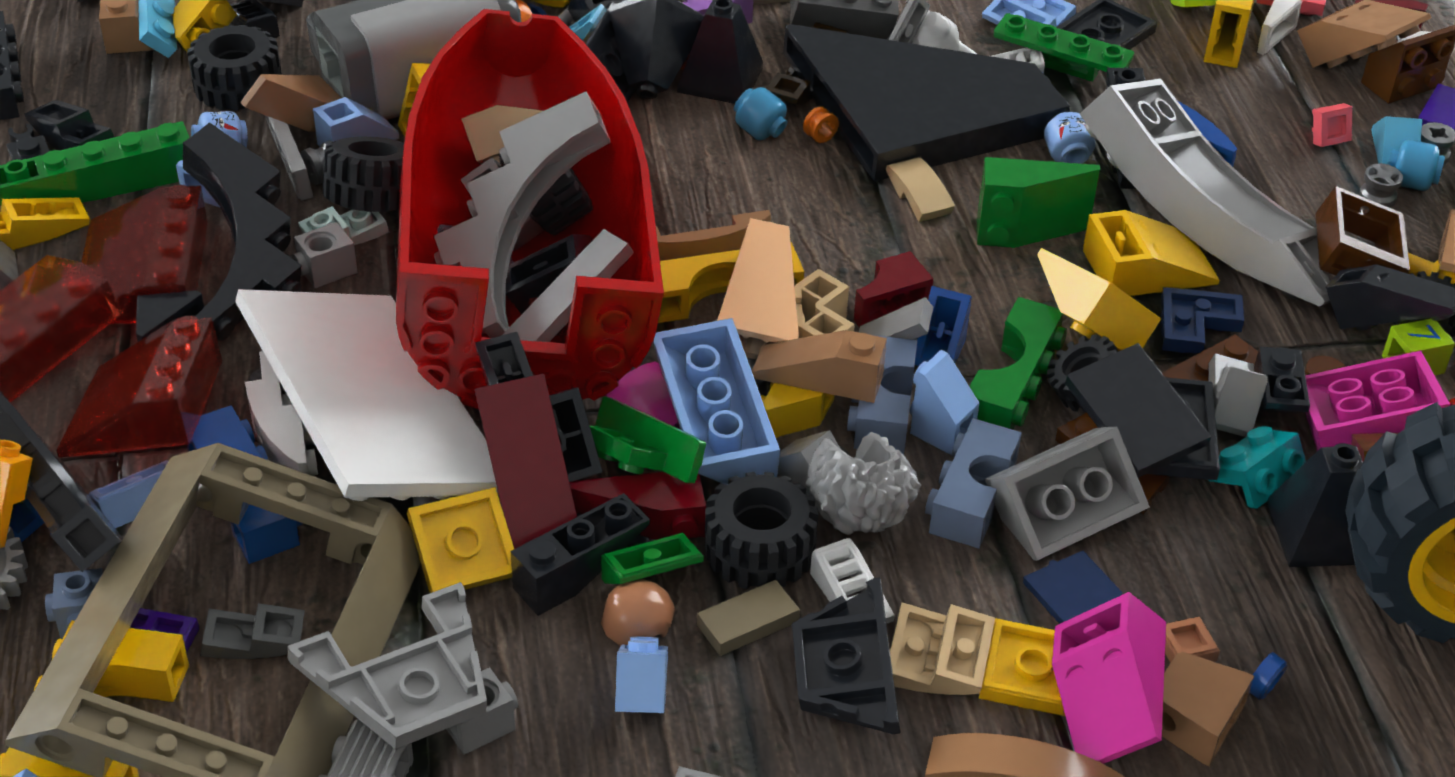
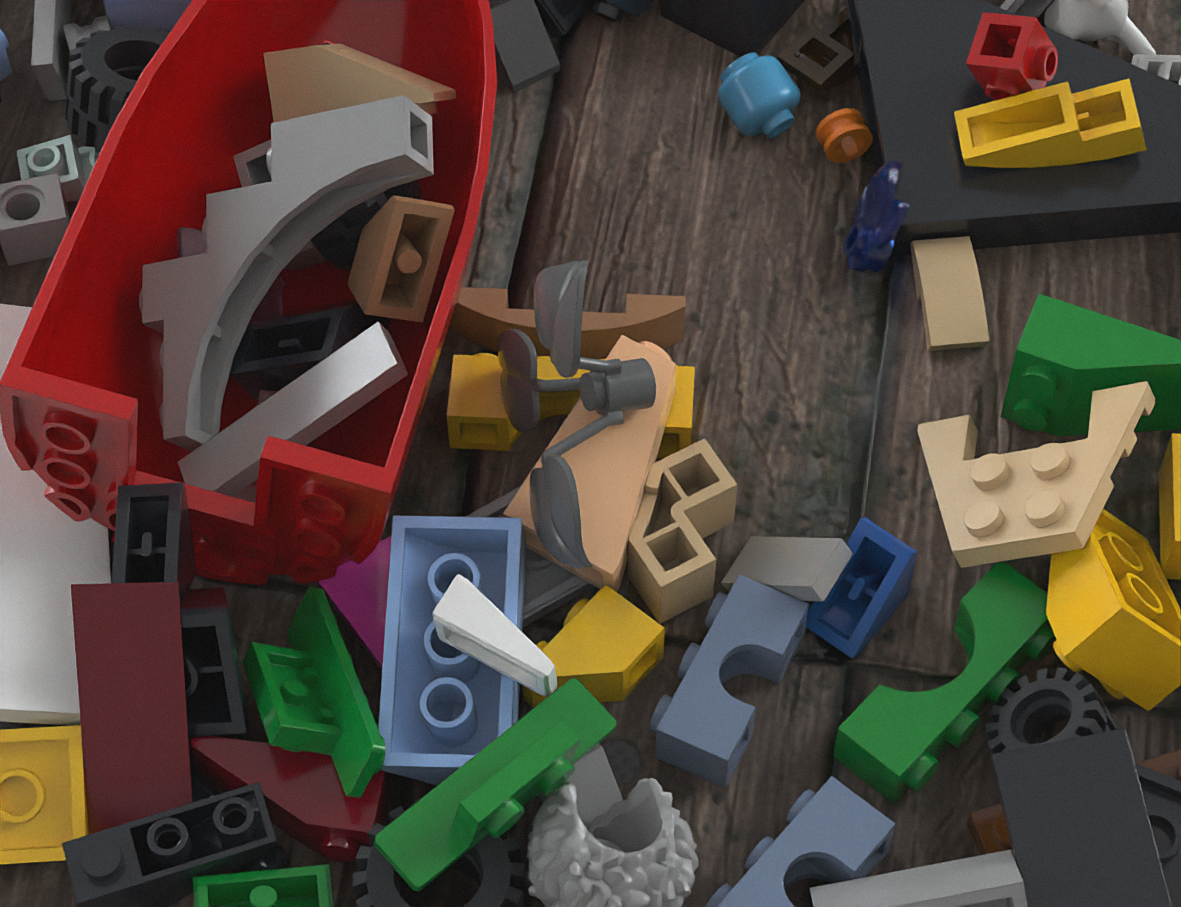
camera: 20 degrees right, 15 degrees up
(598, 197) = (400, 258): none -> medium nougat slope
(747, 376) = (483, 632): none -> white slope
(754, 299) = (608, 388): none -> dark grey plant
(778, 453) = (495, 785): none -> green bracket
(829, 363) = (640, 627): medium nougat slope -> none
(862, 156) = (876, 221): none -> clear blue plate
(896, 284) = (827, 489): dark red arch -> none
(913, 52) = (1011, 55): none -> red brick
(941, 402) = (800, 732): light blue slope -> none
(950, 85) = (1052, 127): none -> yellow slope
(1023, 259) = (1031, 497): none -> tan wing

